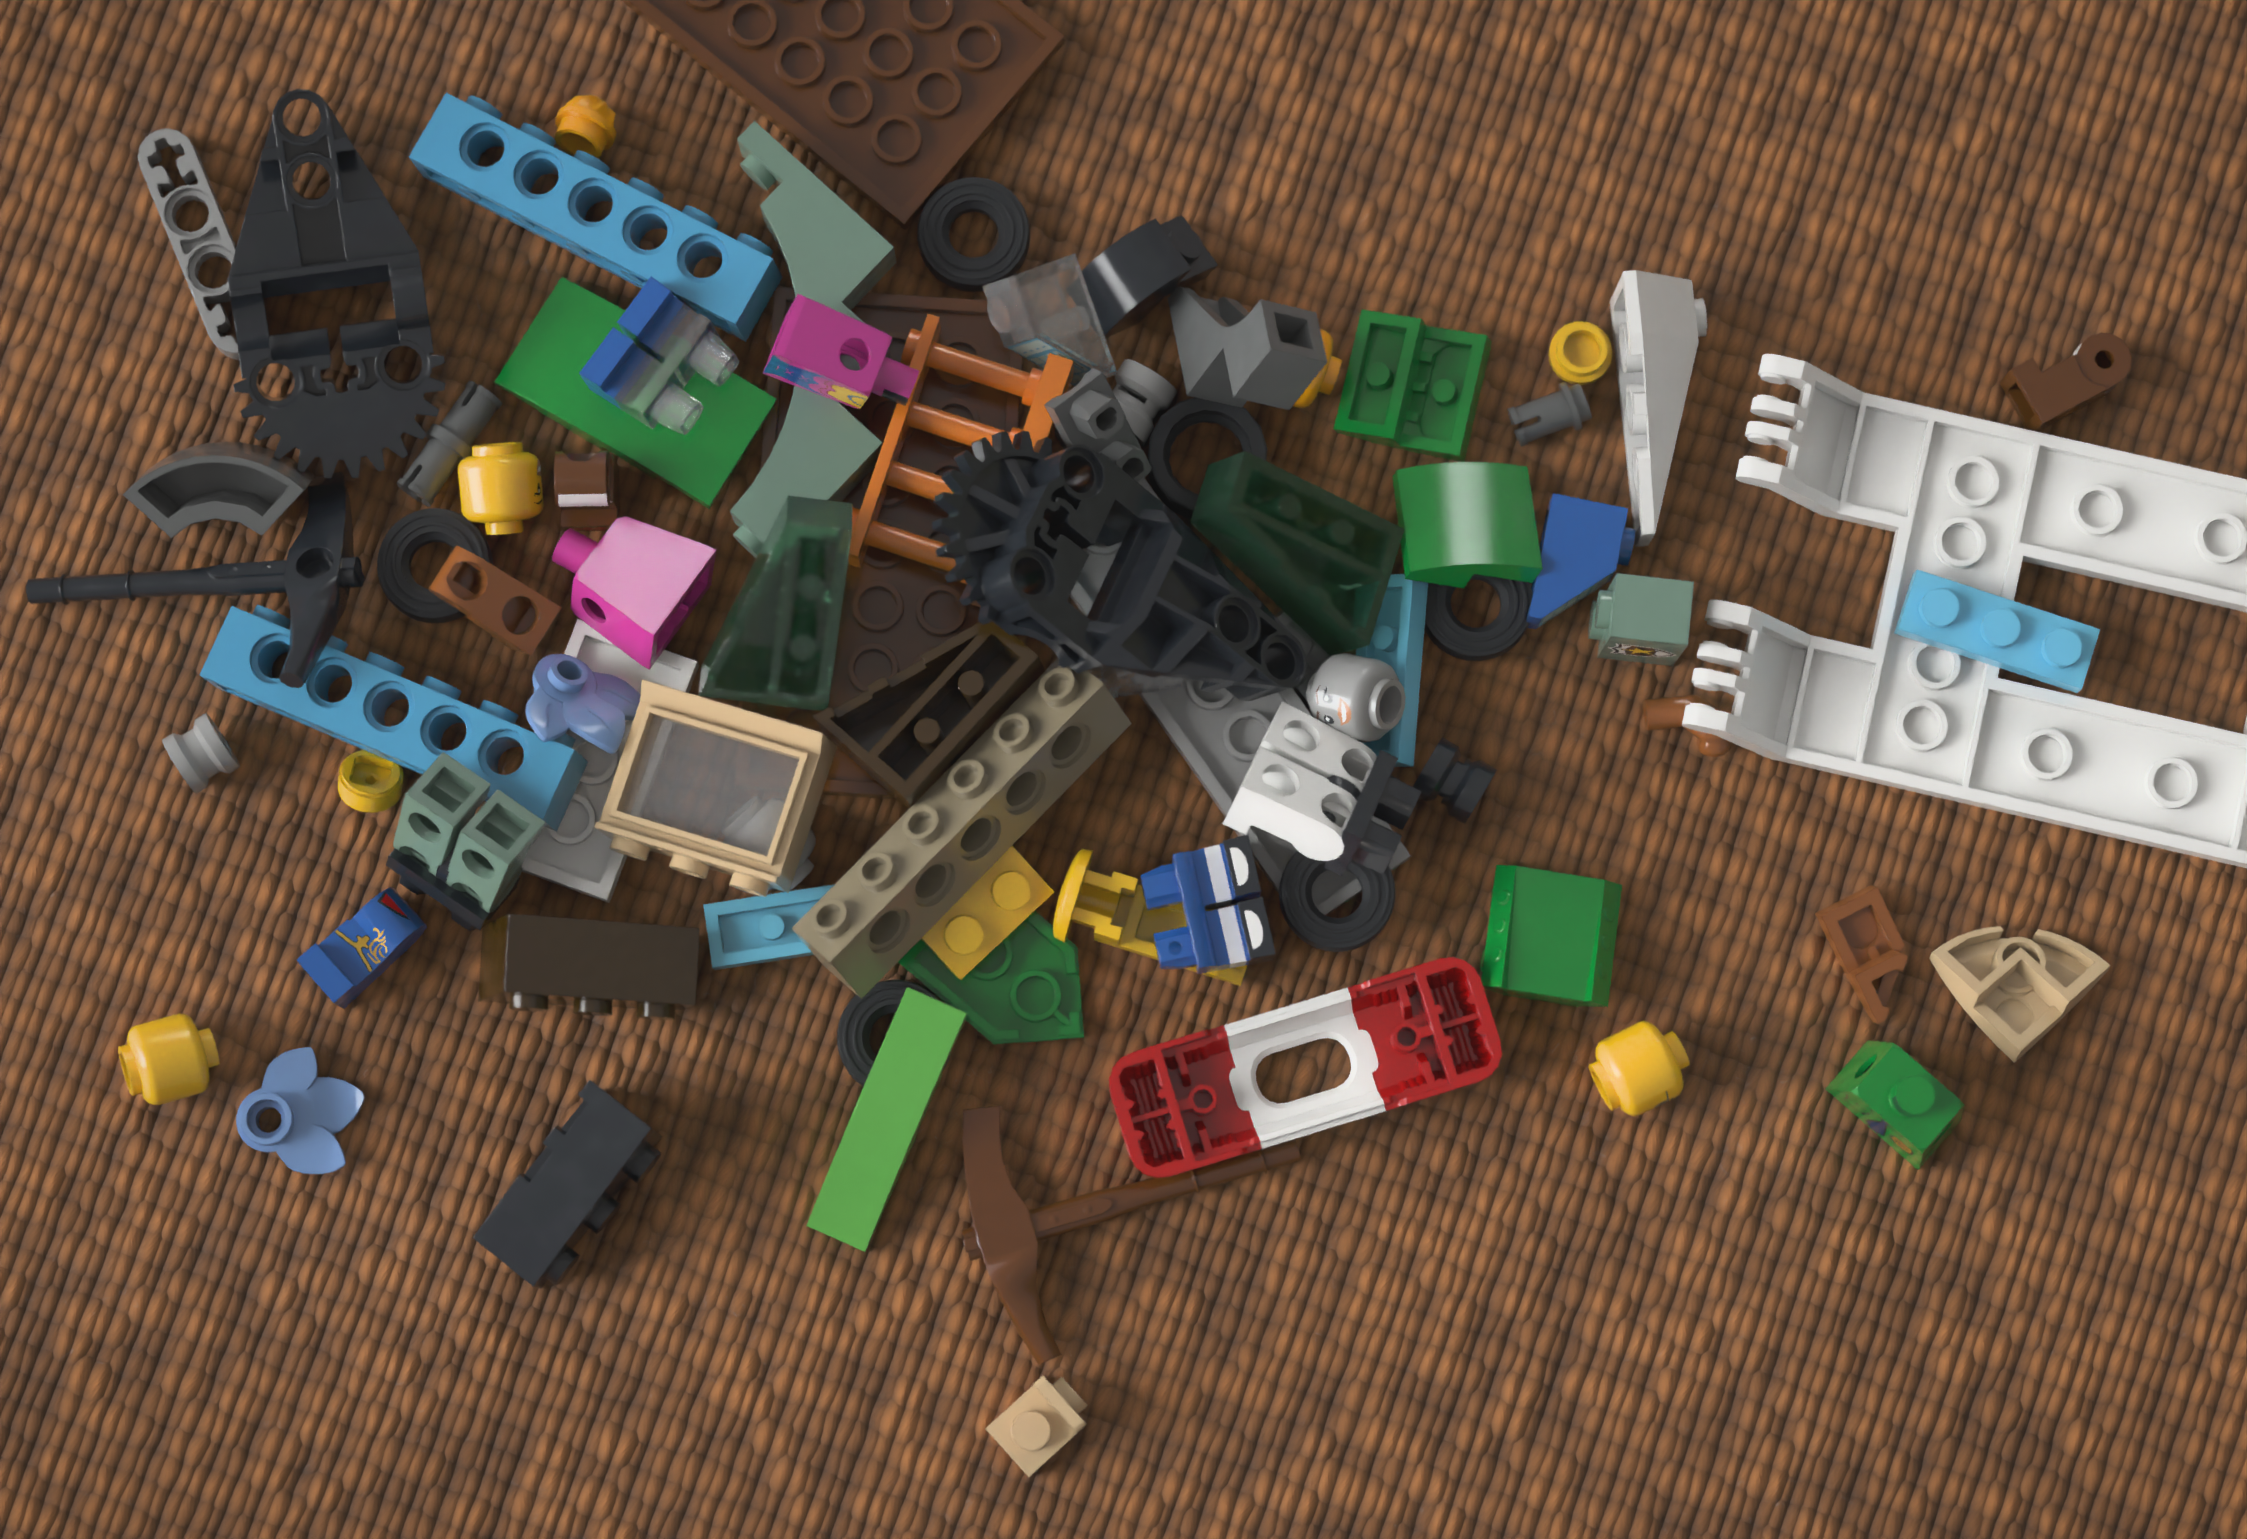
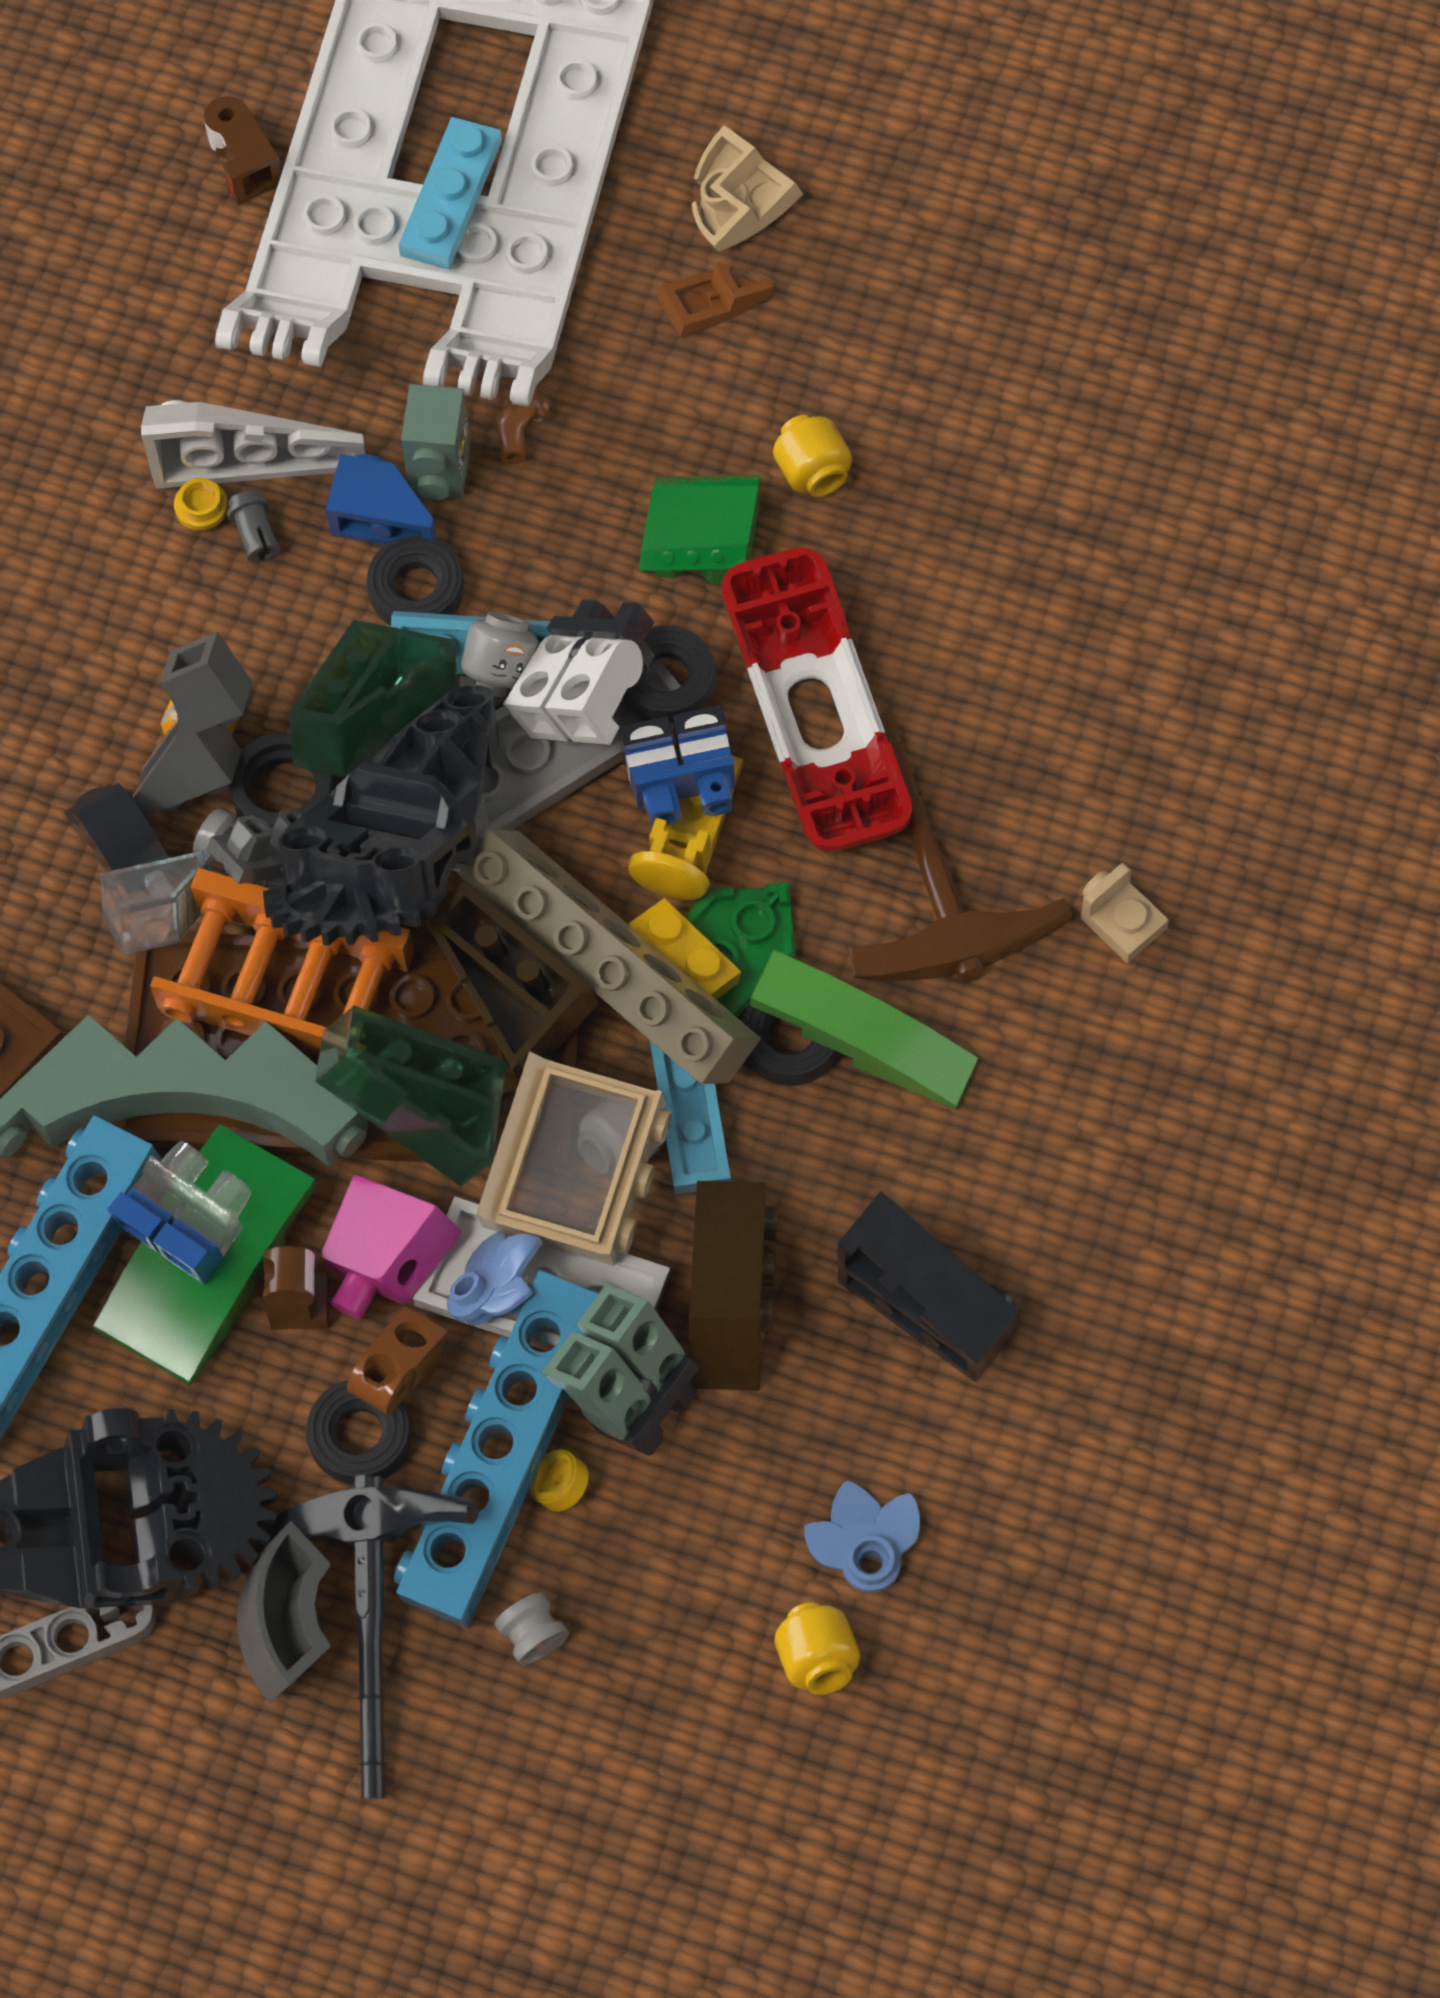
camera: 85 degrees left, 15 degrees down
(363, 947) = (713, 1482): blue leg -> none
(449, 443) = (247, 1417): dark grey pin -> none
(500, 487) = (288, 1369): yellow head -> none
(810, 353) = (189, 1045): dark pink torso -> none
(968, 196) = (64, 949): black tyre -> none
(1412, 385) = (242, 613): green slope -> none
(1456, 782) = (569, 585): black wheel -> none
(1467, 522) = (347, 579): green slope -> none
(1897, 1100) = (841, 258): green torso -> none

